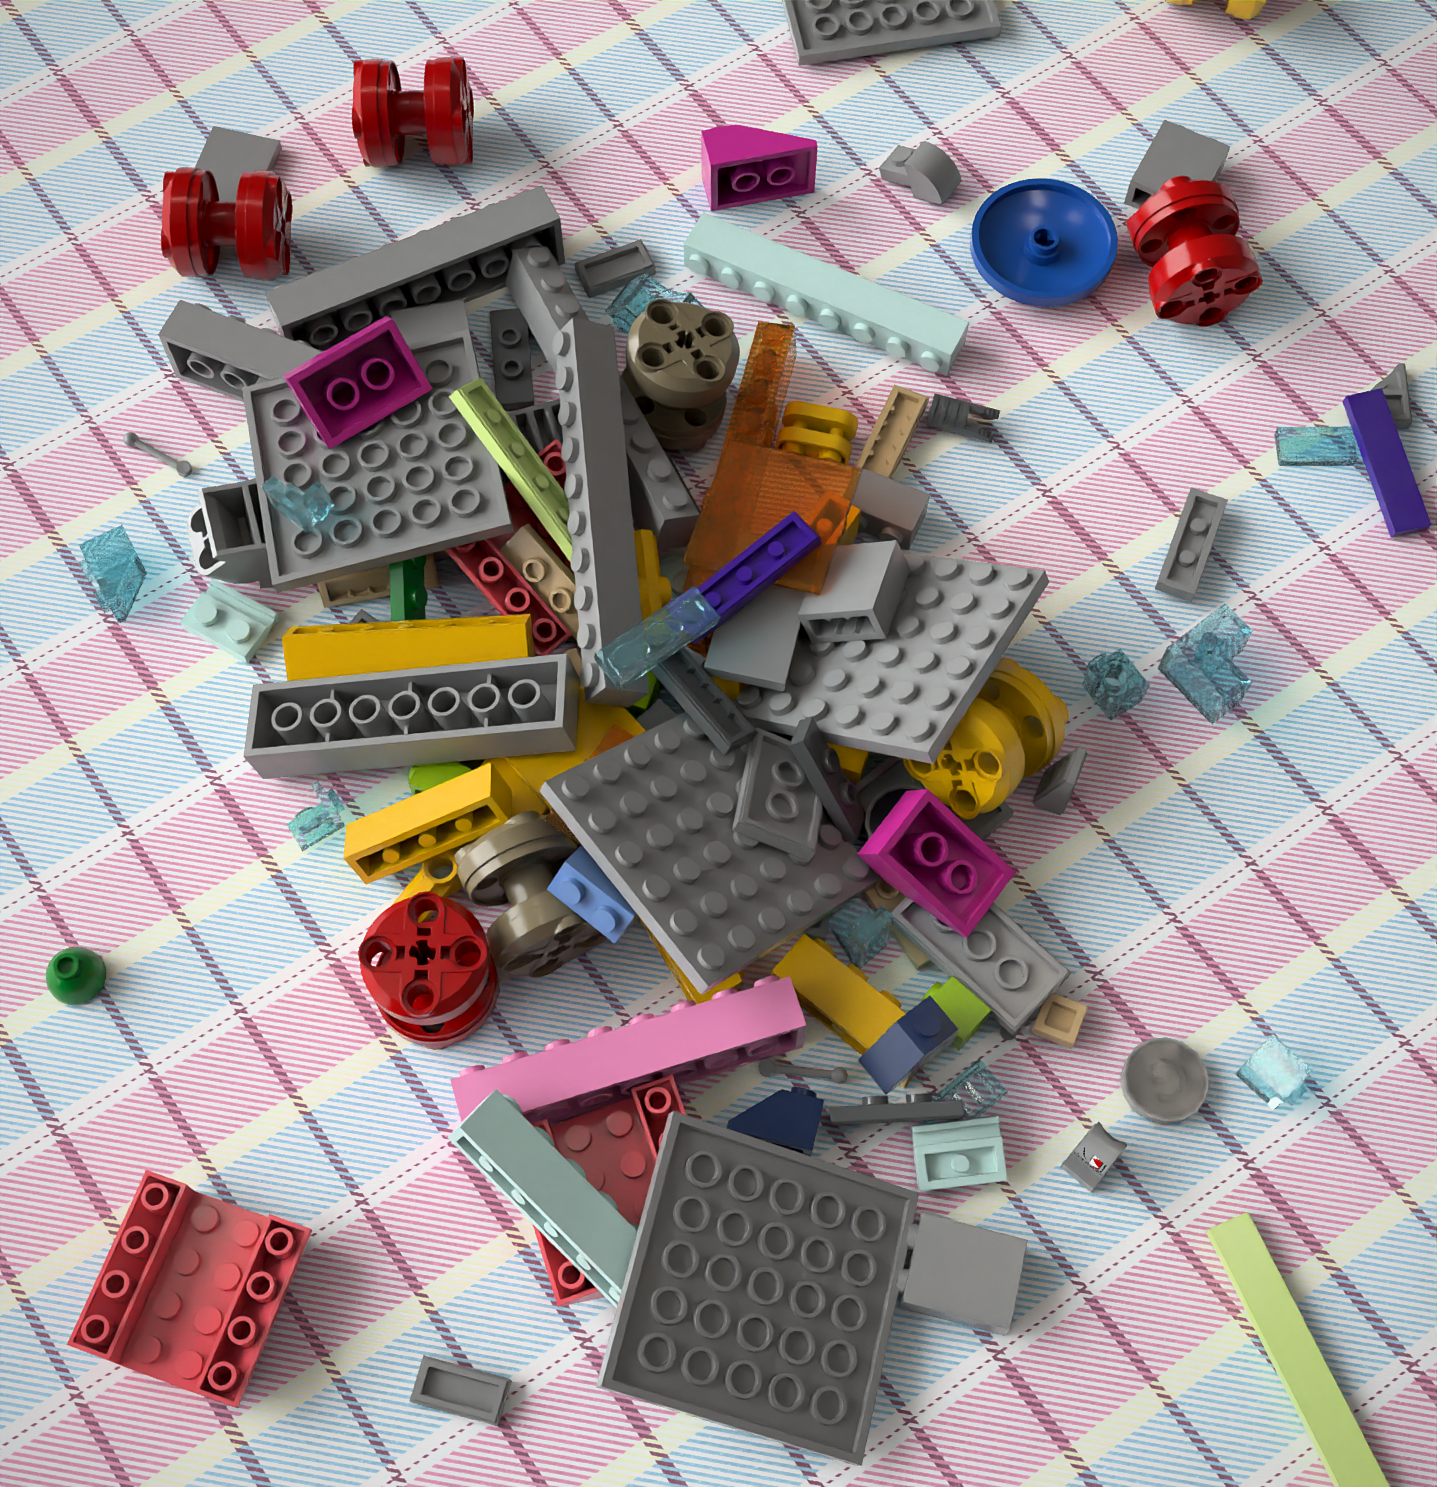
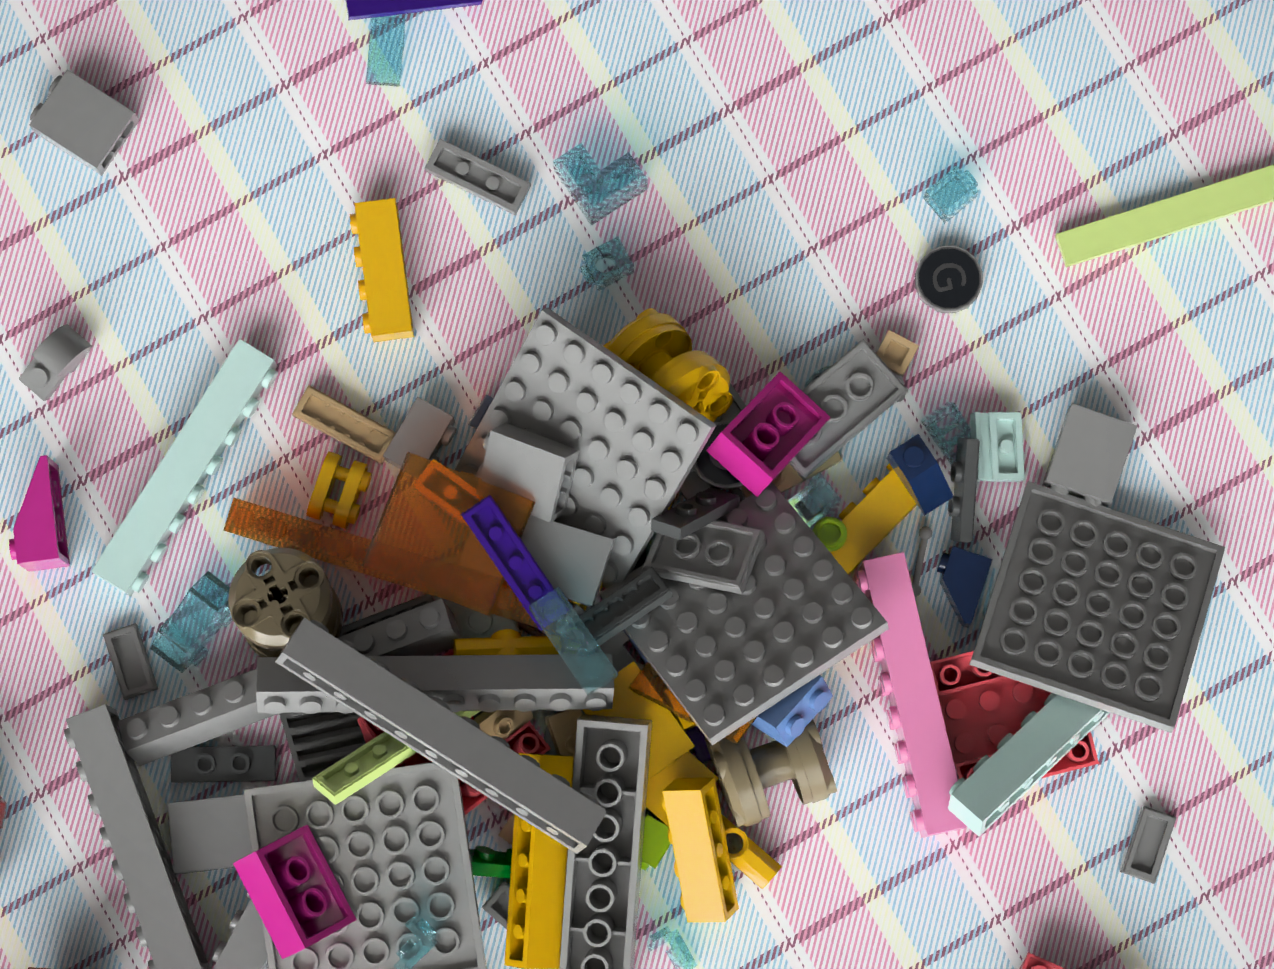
camera: 85 degrees left, 15 degrees up
(430, 970) = (846, 868): red wheel -> none
(531, 501) = (441, 735): none -> light grey brick
(821, 944) = (831, 532): none -> lime plate
(951, 416) = (328, 364): dark grey hinge -> none
(961, 1007) = (883, 435): lime brick -> none
(1043, 242) = (154, 258): blue dish -> none
(1059, 782) = (698, 322): light grey slope -> none
(1068, 458) = (383, 270): none -> yellow brick
(1093, 1157) = (1009, 343): light grey leg -> none
(1193, 251) = (166, 128): red wheel -> none

